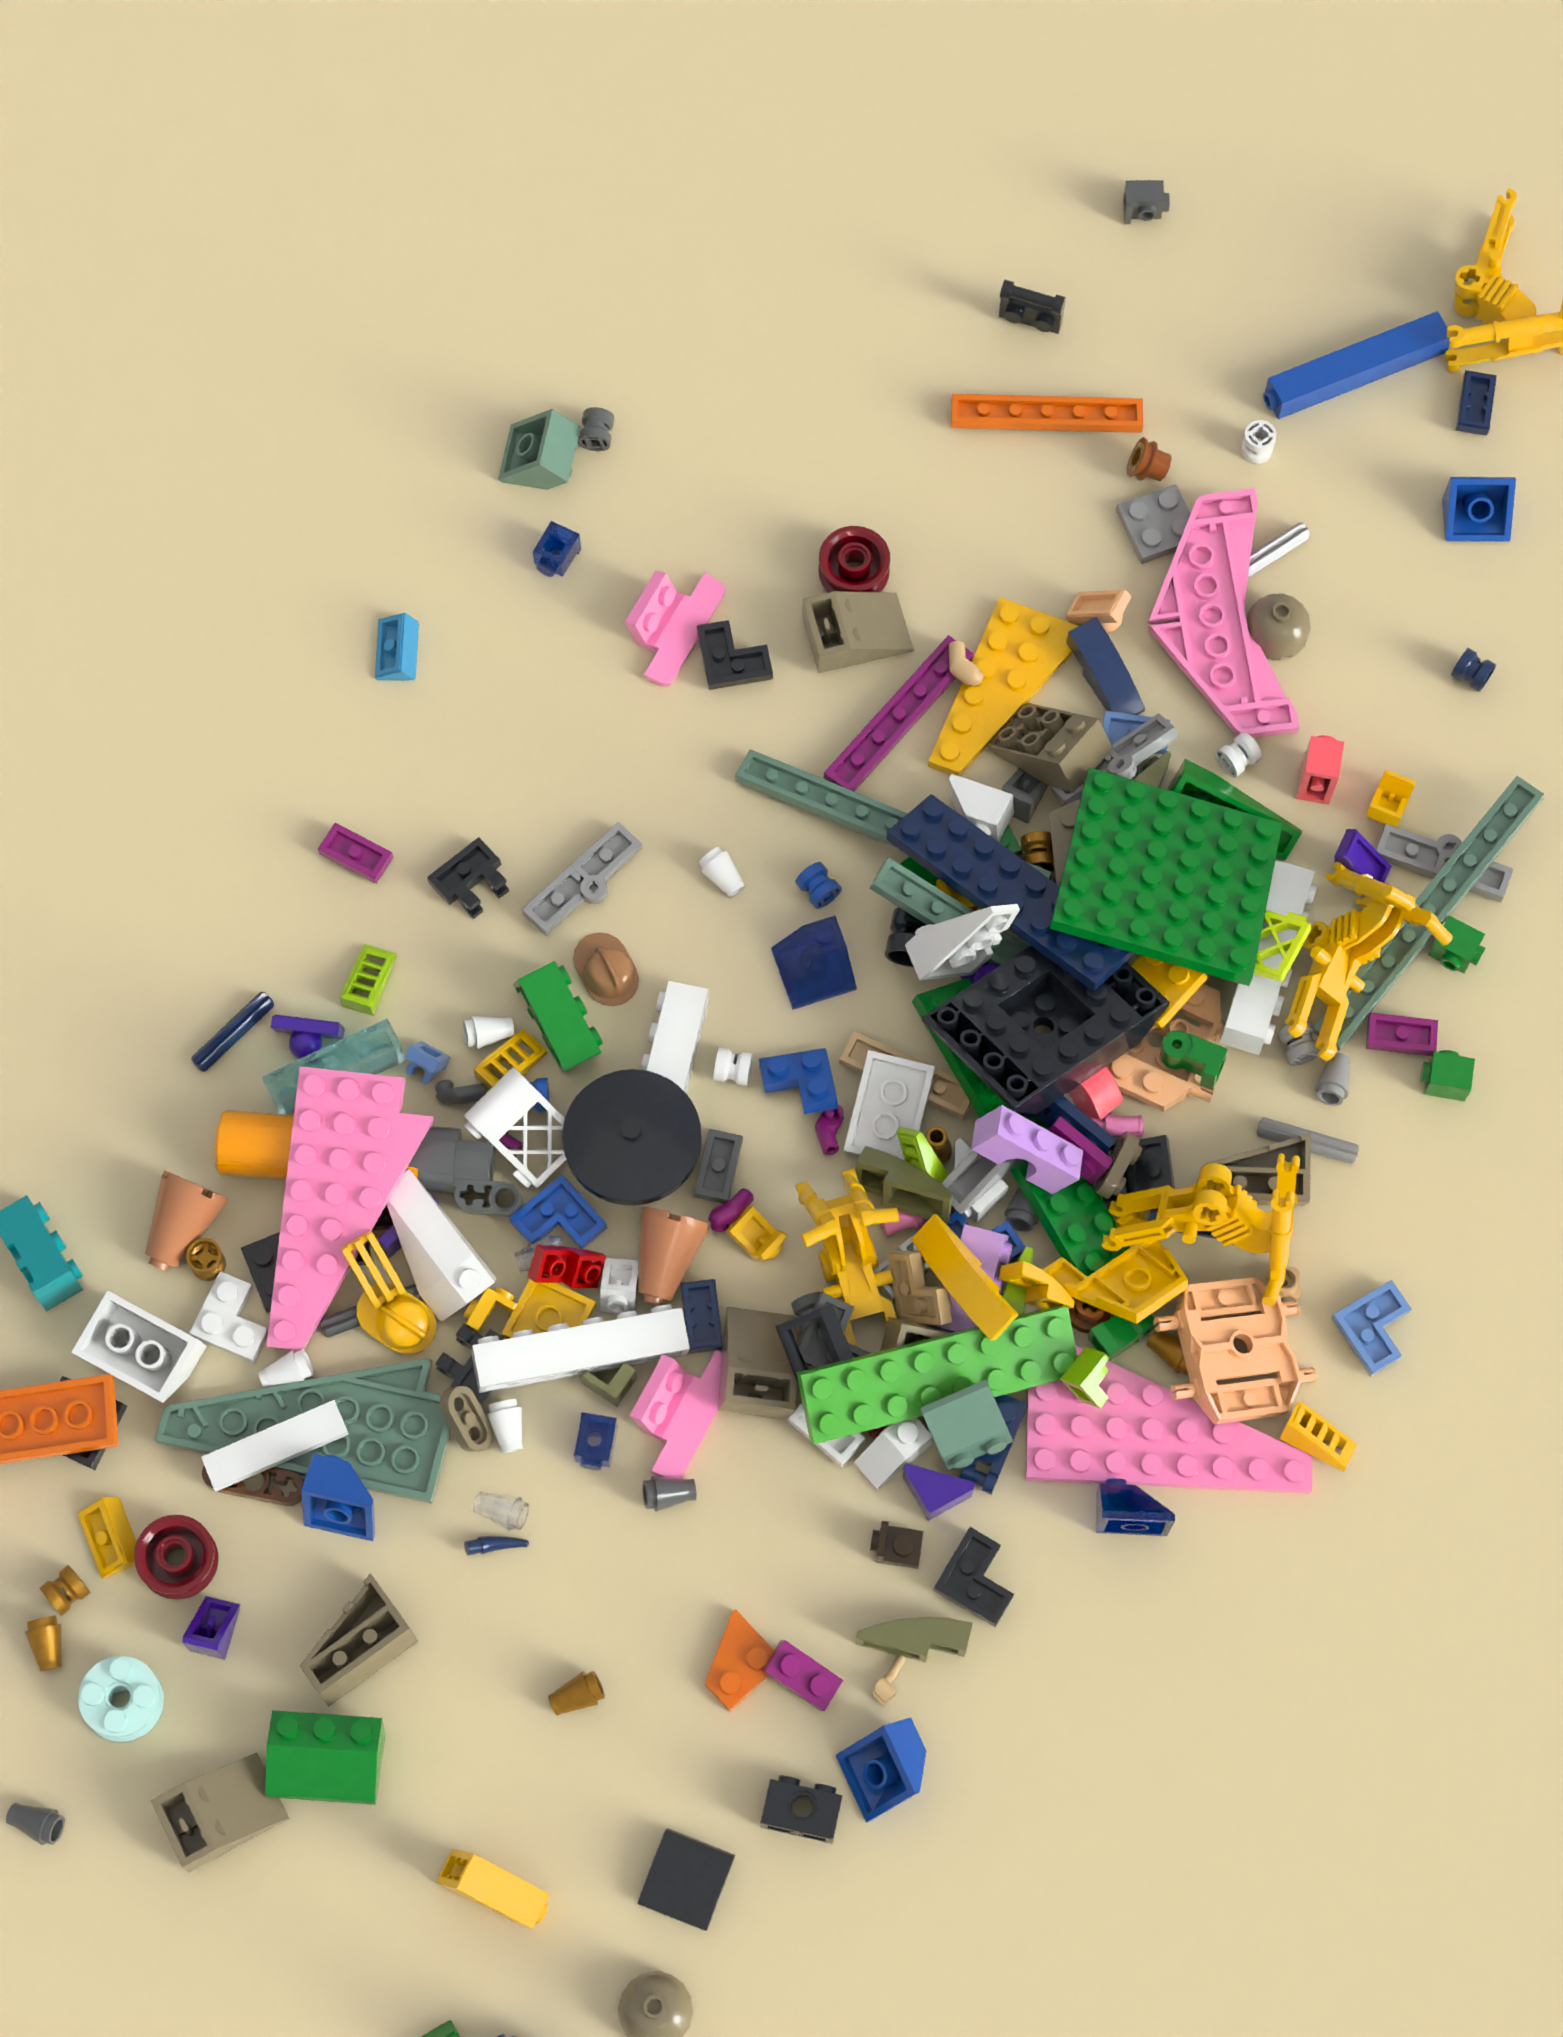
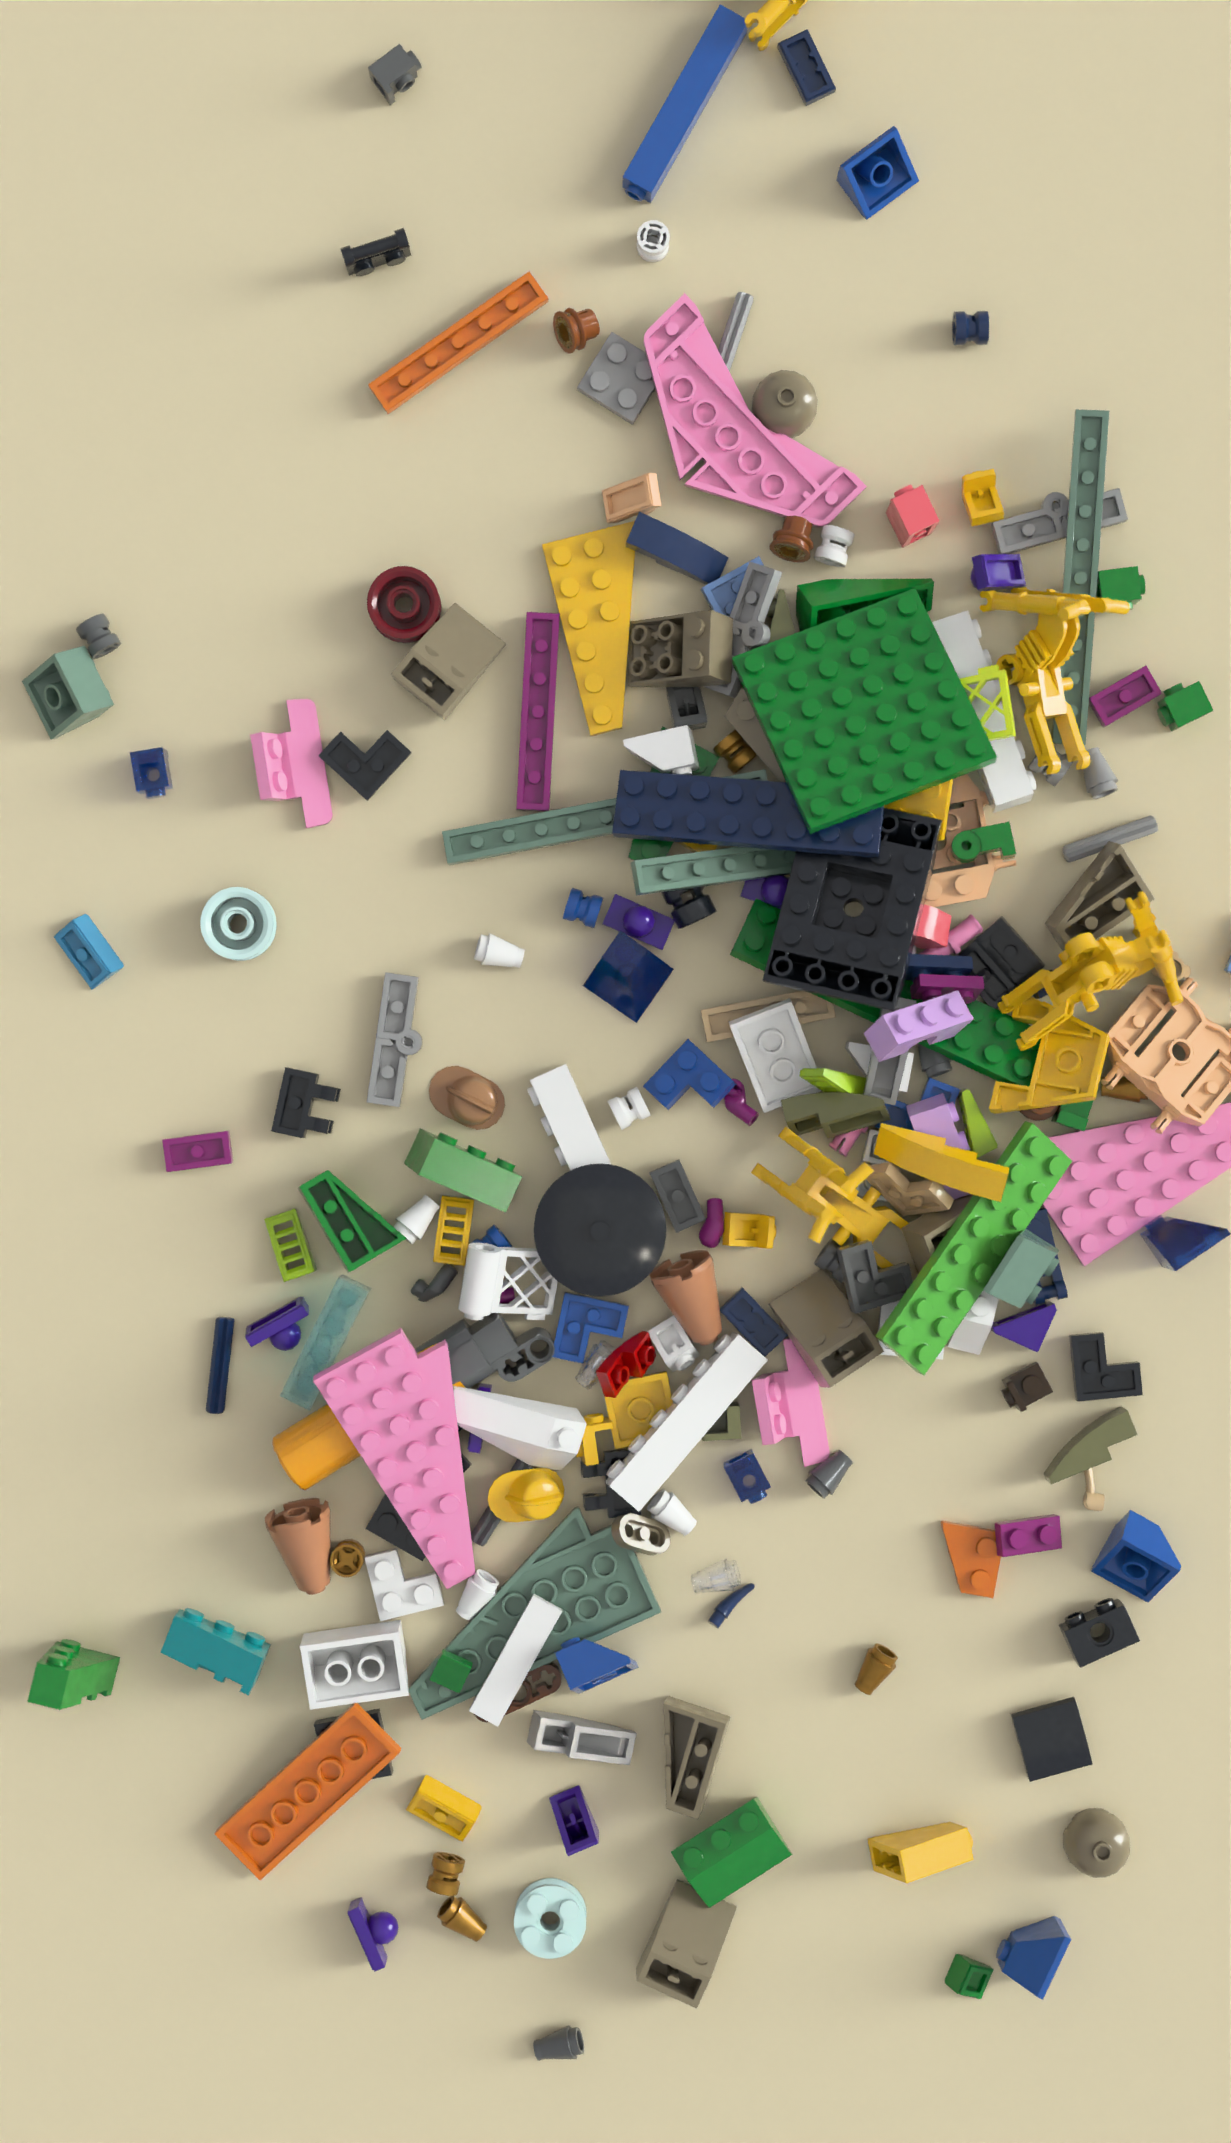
camera: 35 degrees left, 20 degrees up
(192, 1573) = (514, 1771): dark red wheel -> none
(213, 1413) = (451, 1671): none -> green slope
(276, 1561) = (580, 1738): none -> light grey slope
(387, 1294) = (506, 1487): yellow tile -> none
(426, 1057) = (388, 1277): medium blue tile -> none
(431, 992) = (347, 1221): none -> green wedge
(533, 685) = (217, 918): none -> light aqua wheel
(830, 1329) = (852, 1273): black tile -> none
(857, 930) = (638, 922): none -> dark purple tile
(943, 1148) = (822, 1052): pearl gold cone -> none
(959, 944) = (735, 893): white wedge -> none
(962, 667) = (560, 635): tan arm -> none
(1040, 1287) = (996, 1122): yellow slope -> none
(1085, 1376) = (1079, 1163): lime panel -> none
(1124, 1153) = (985, 964): dark tan plate -> none
(1207, 727) = (793, 540): none -> dark orange piece

